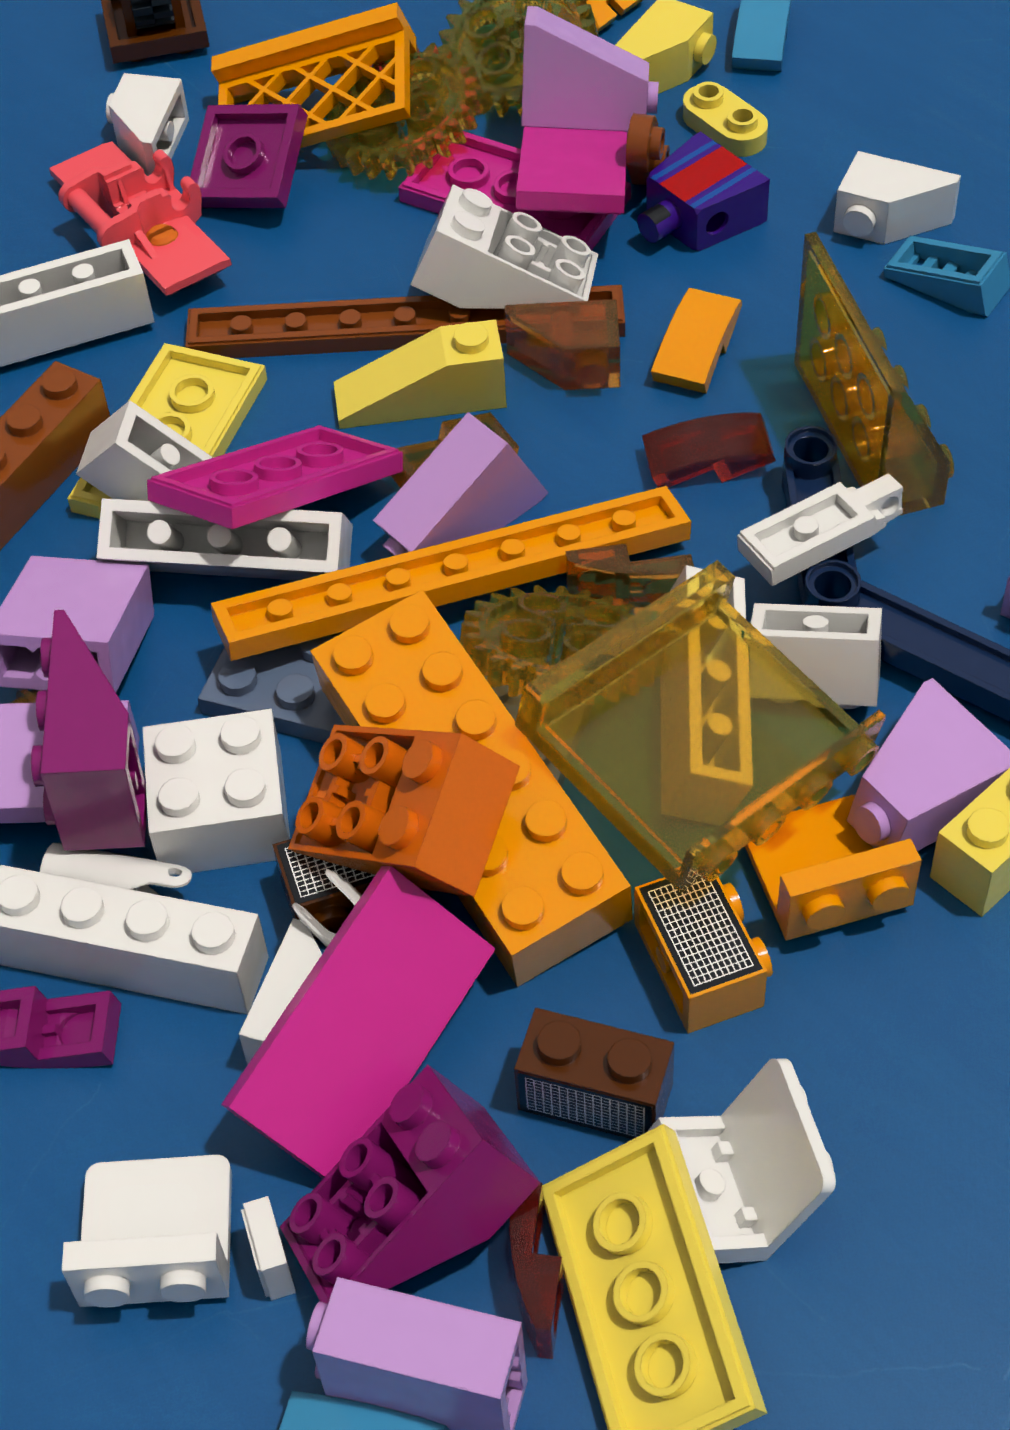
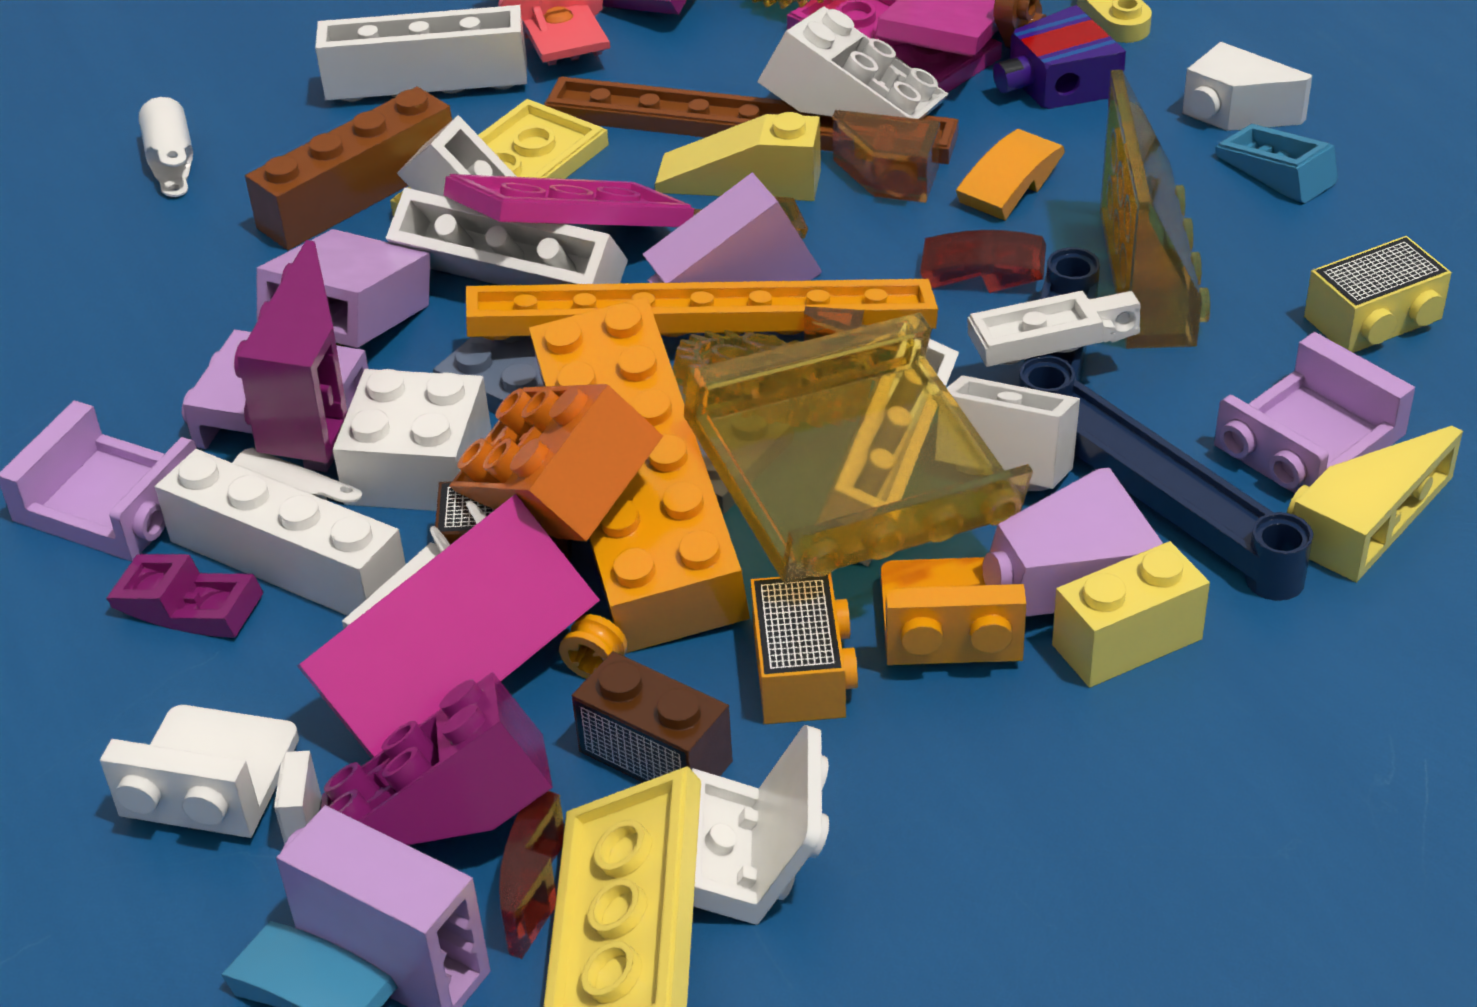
camera: 15 degrees right, 10 degrees down
(497, 995) = (590, 643): none -> light orange bush

